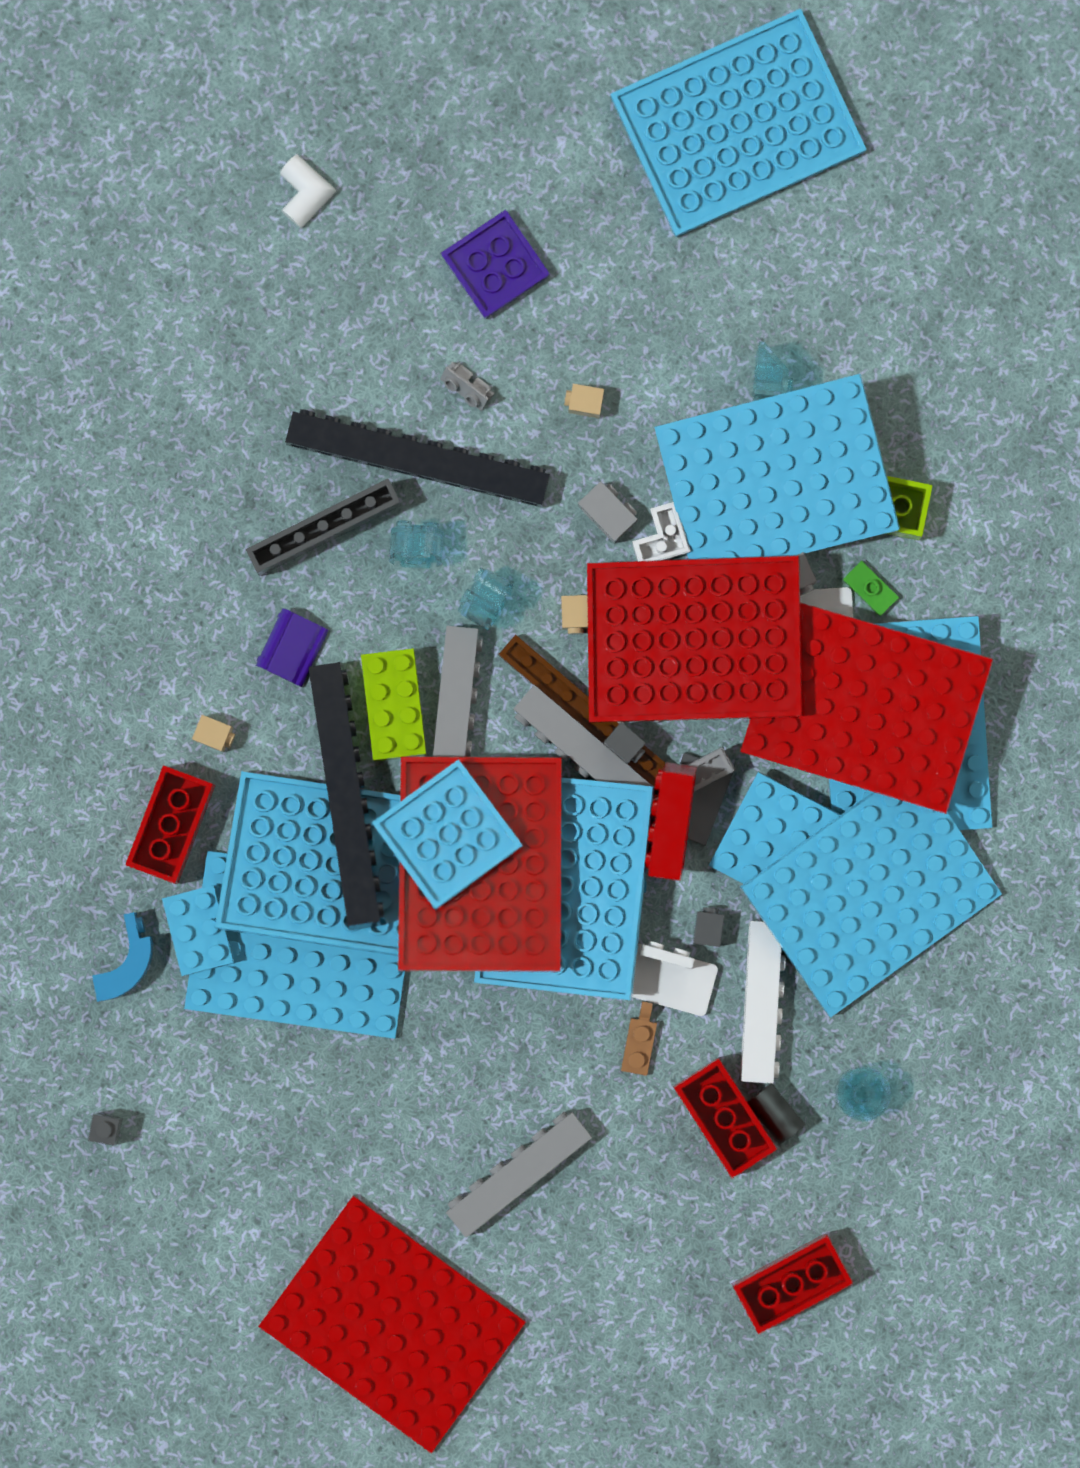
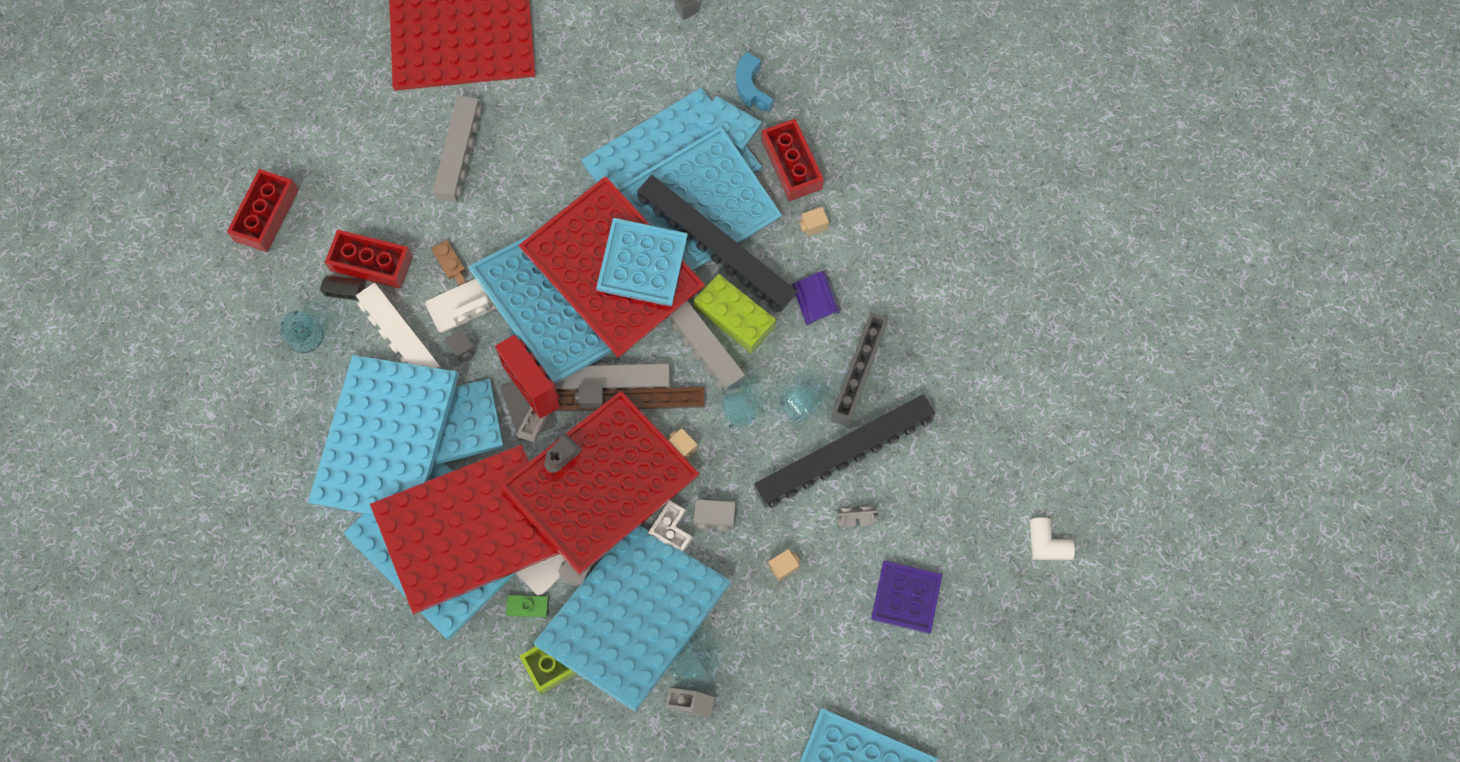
camera: 140 degrees right, 15 degrees down
(707, 695) = (561, 454): none -> dark grey piece
(795, 352) = (689, 702): none -> light grey slope

